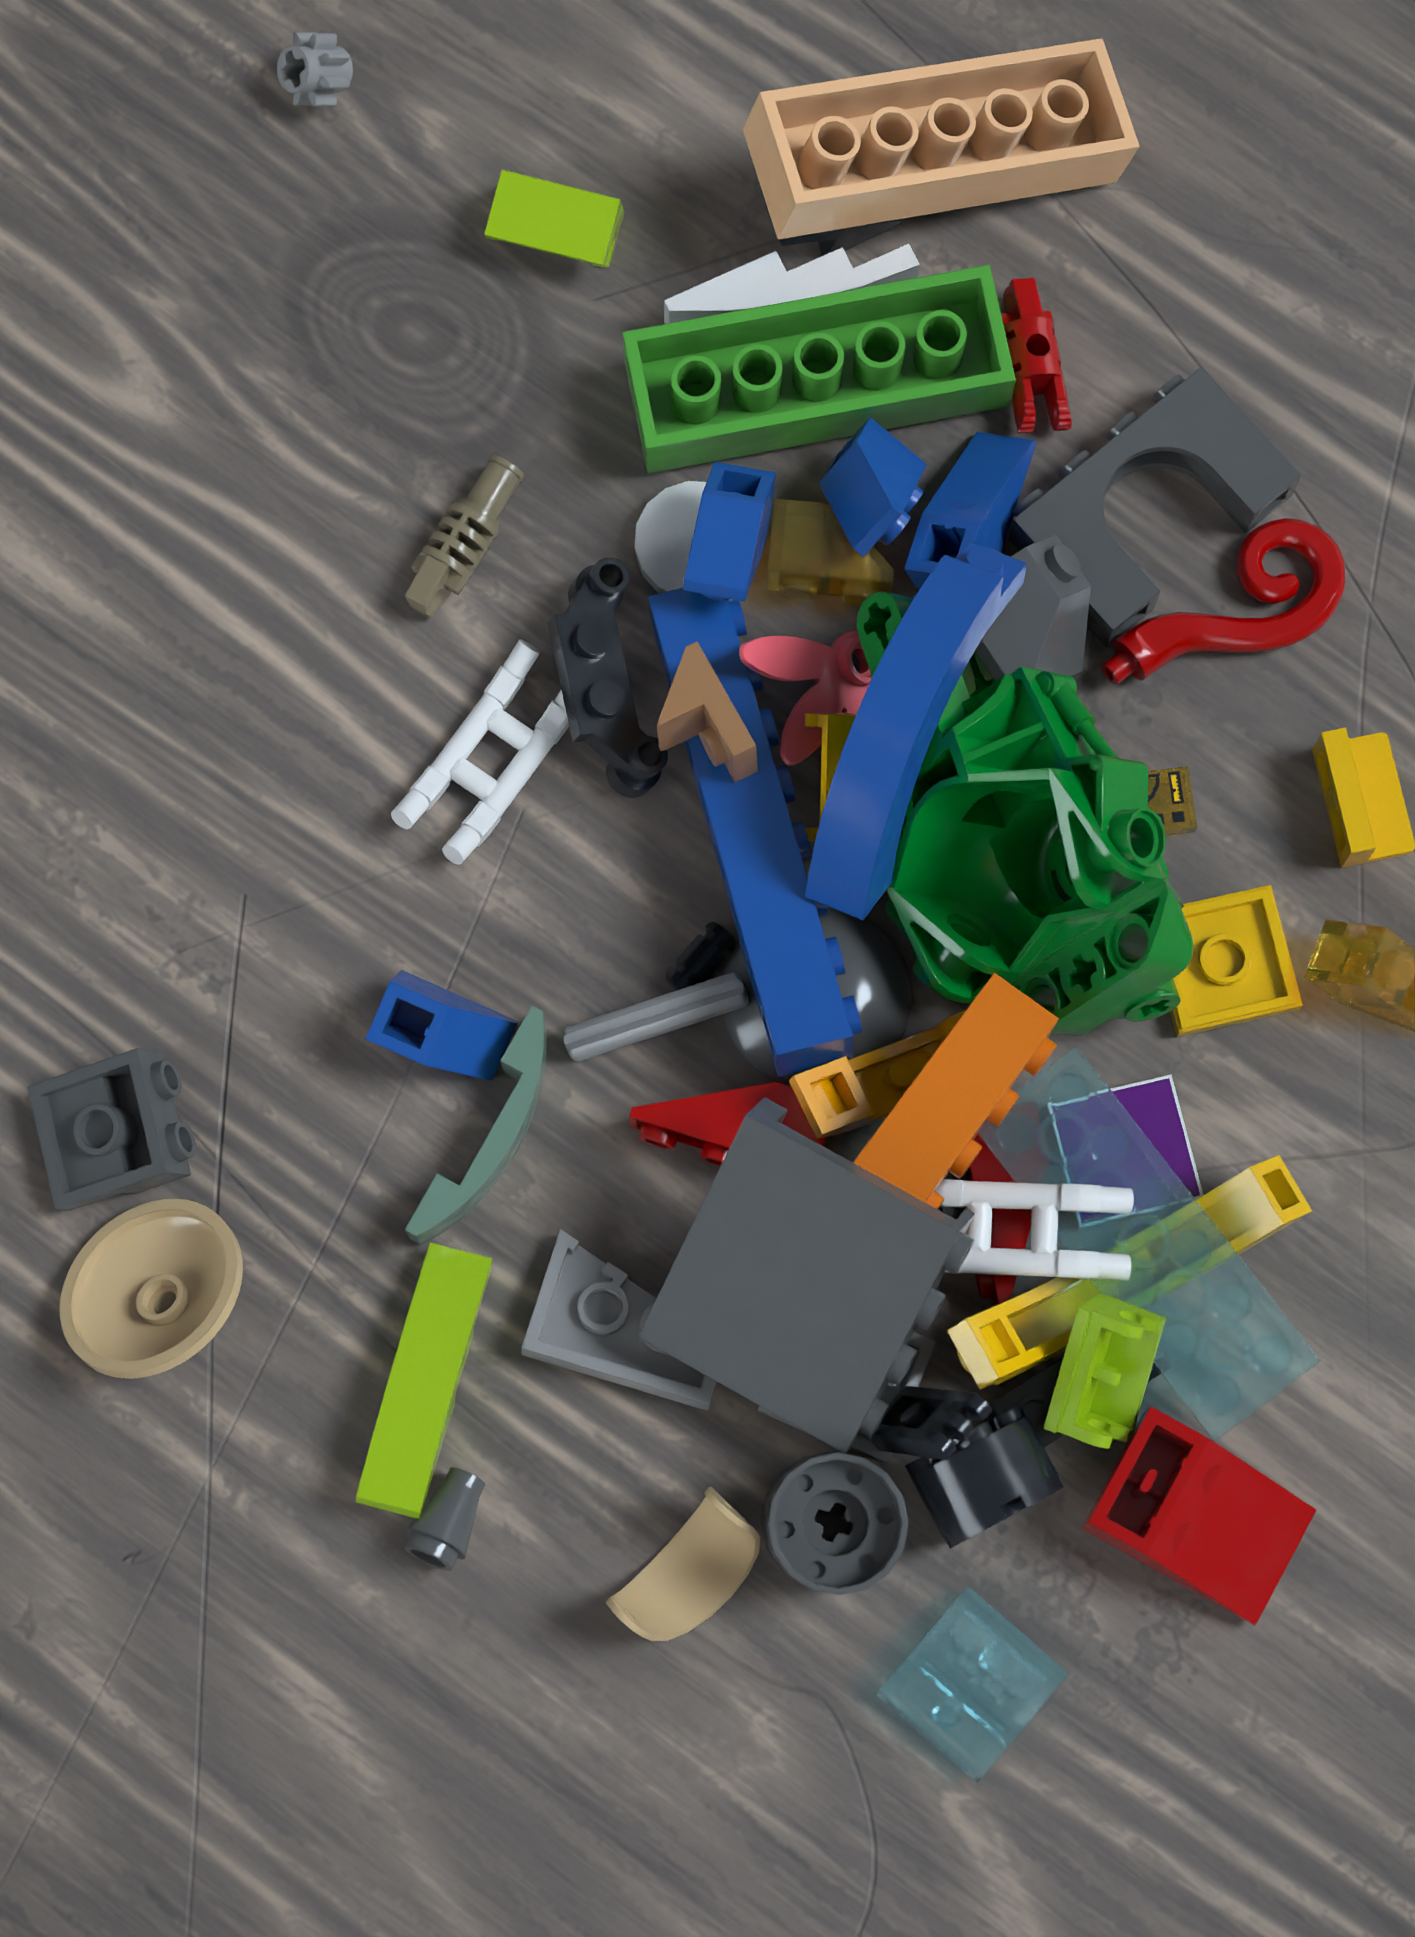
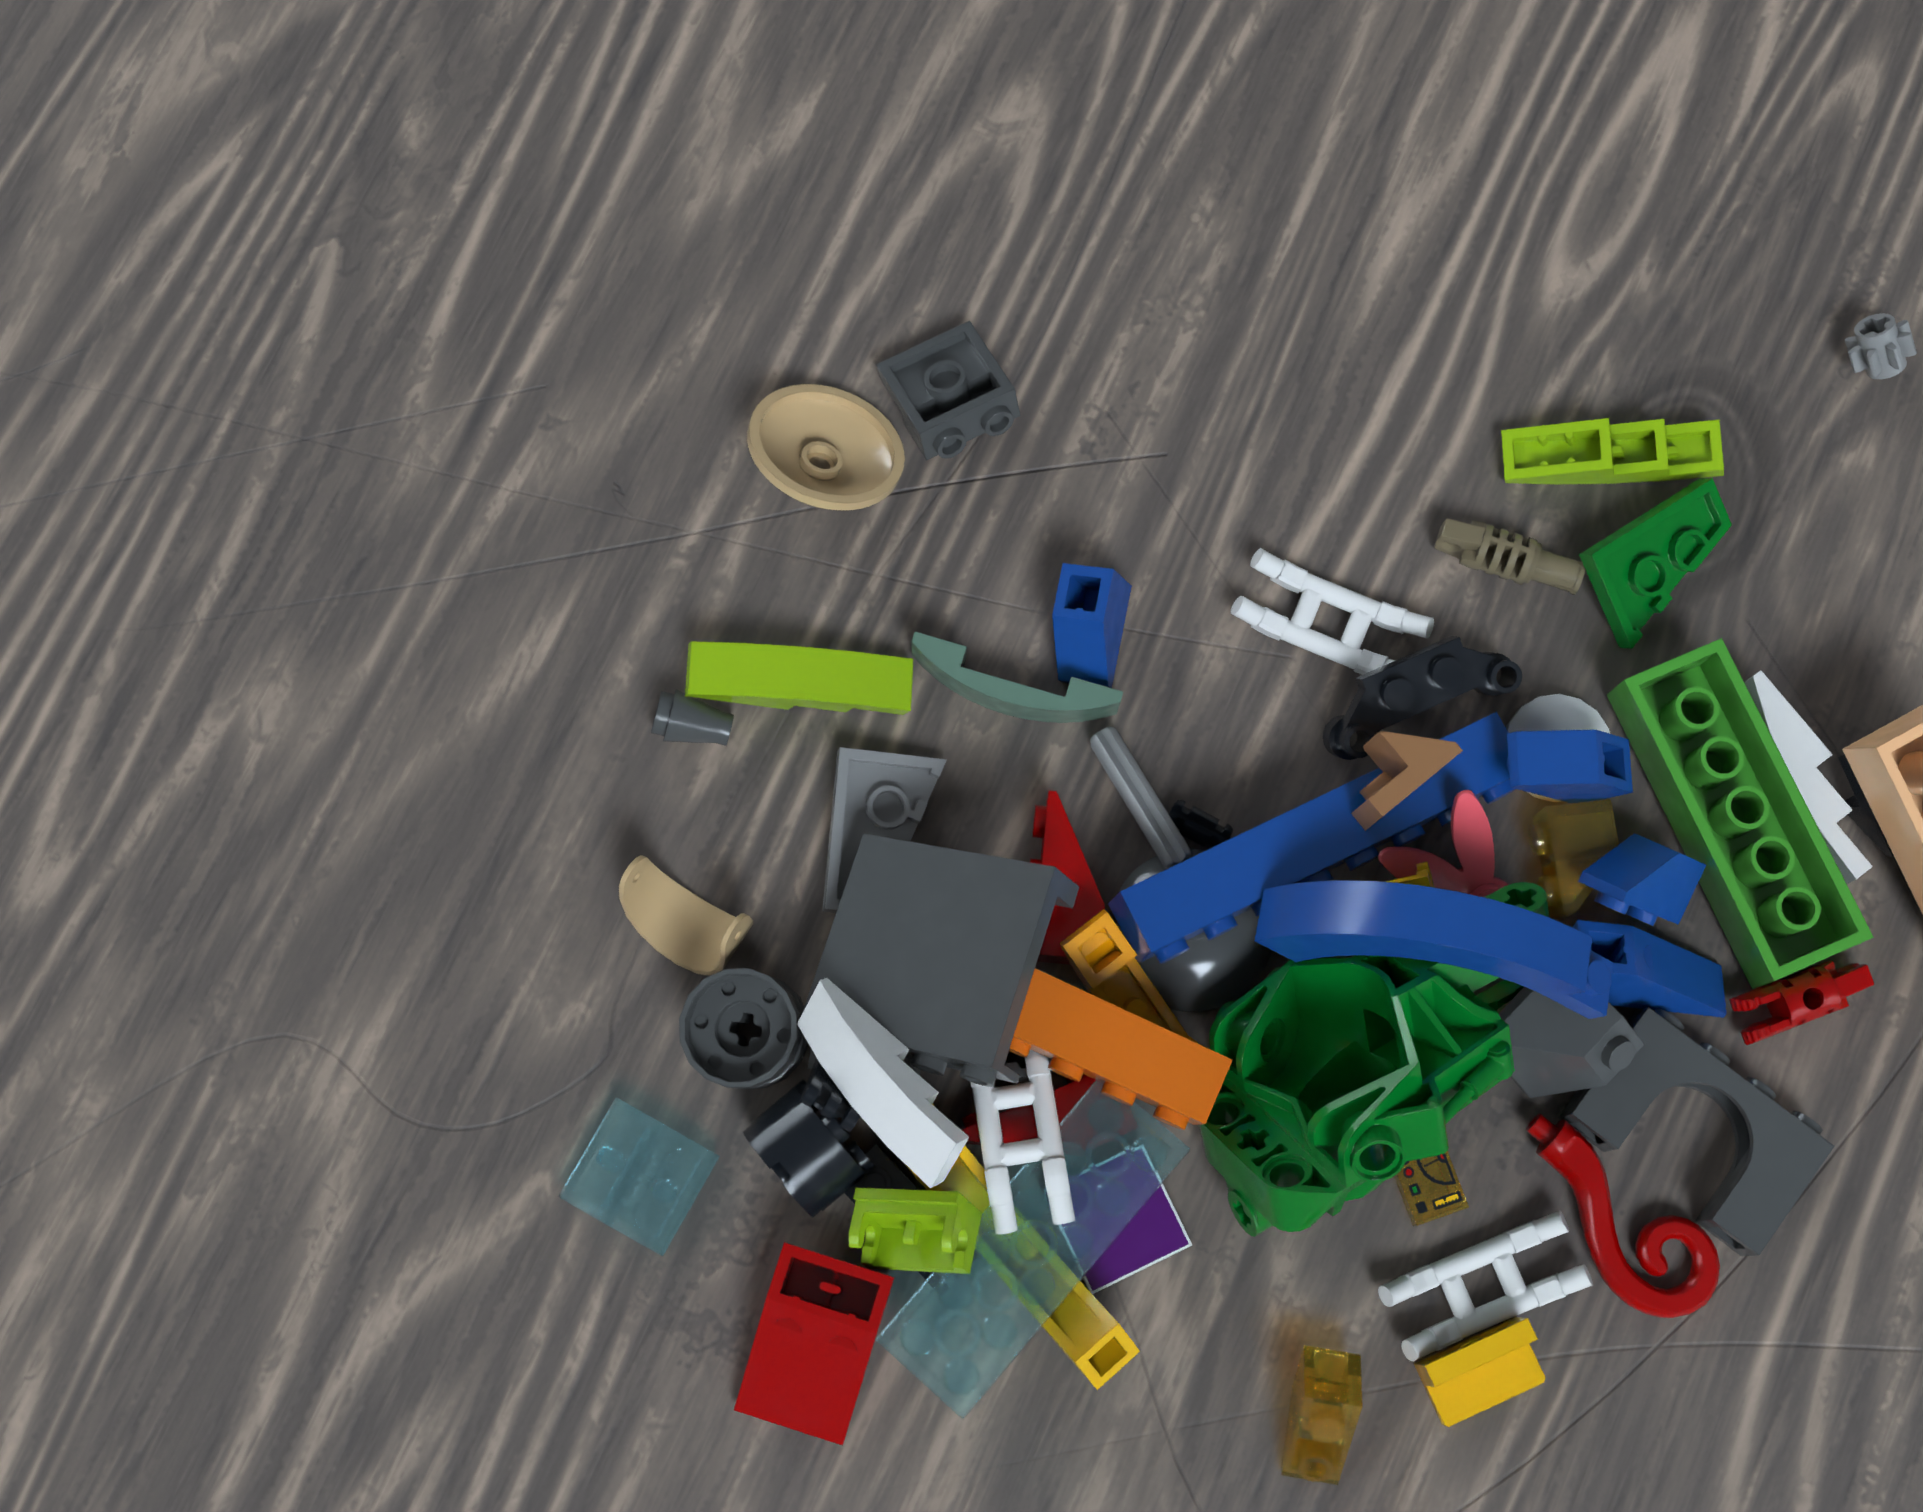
camera: 75 degrees right, 0 degrees up
(367, 393) = (1612, 453): none -> lime slope
(499, 384) = (1651, 554): none -> green wing
(555, 218) = (1807, 569): lime hinge -> none
(948, 1366) = (880, 1087): none -> white slope
(1236, 965) = (1304, 1278): yellow tile -> none
(1291, 738) = (1517, 1297): none -> white piece

